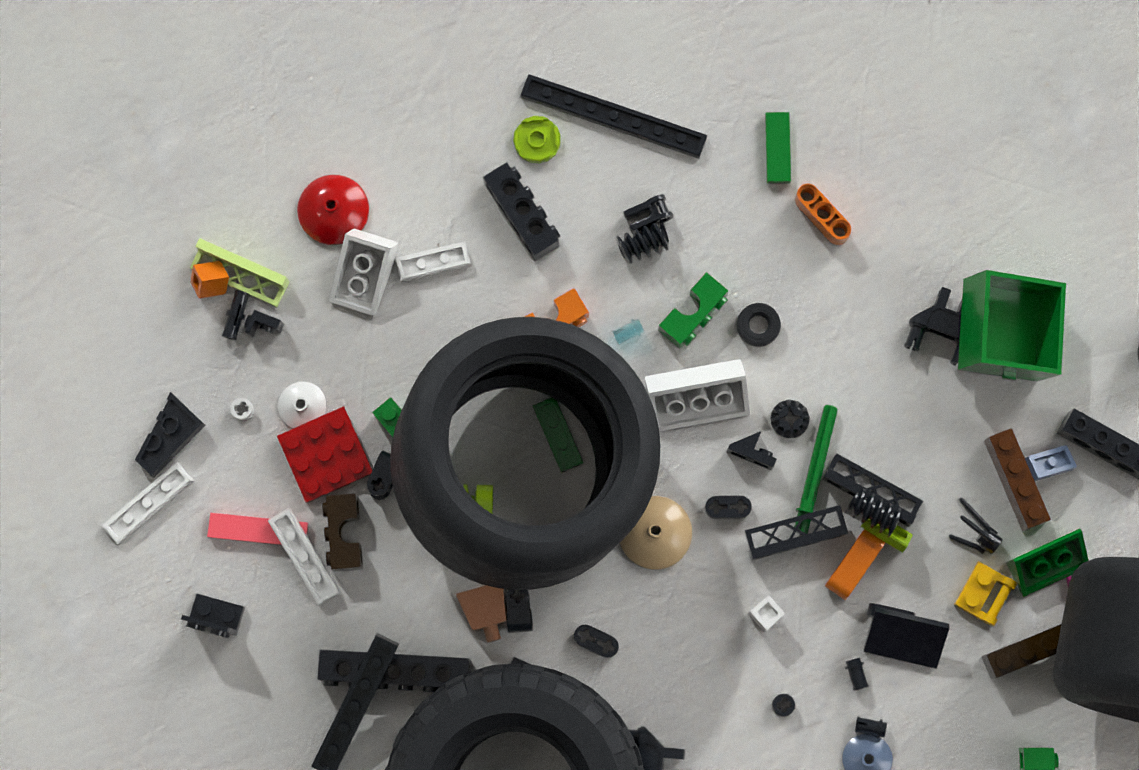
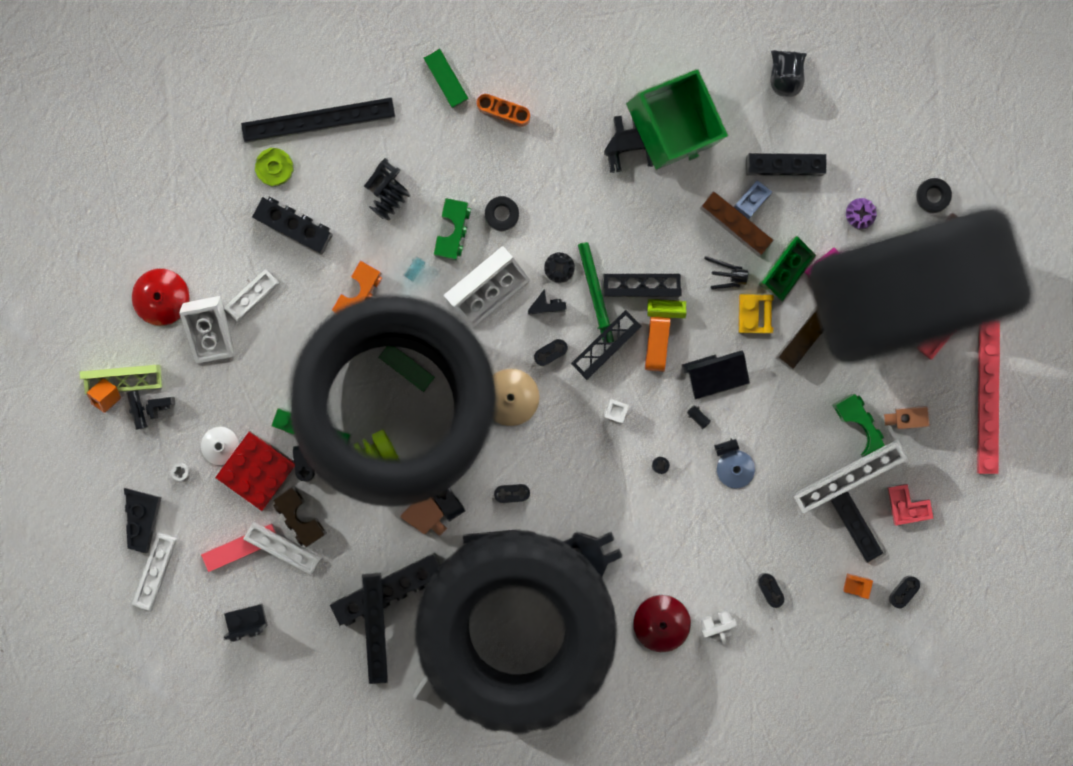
camera: 30 degrees left, 10 degrees up
(874, 511) = (651, 302): black piece -> none

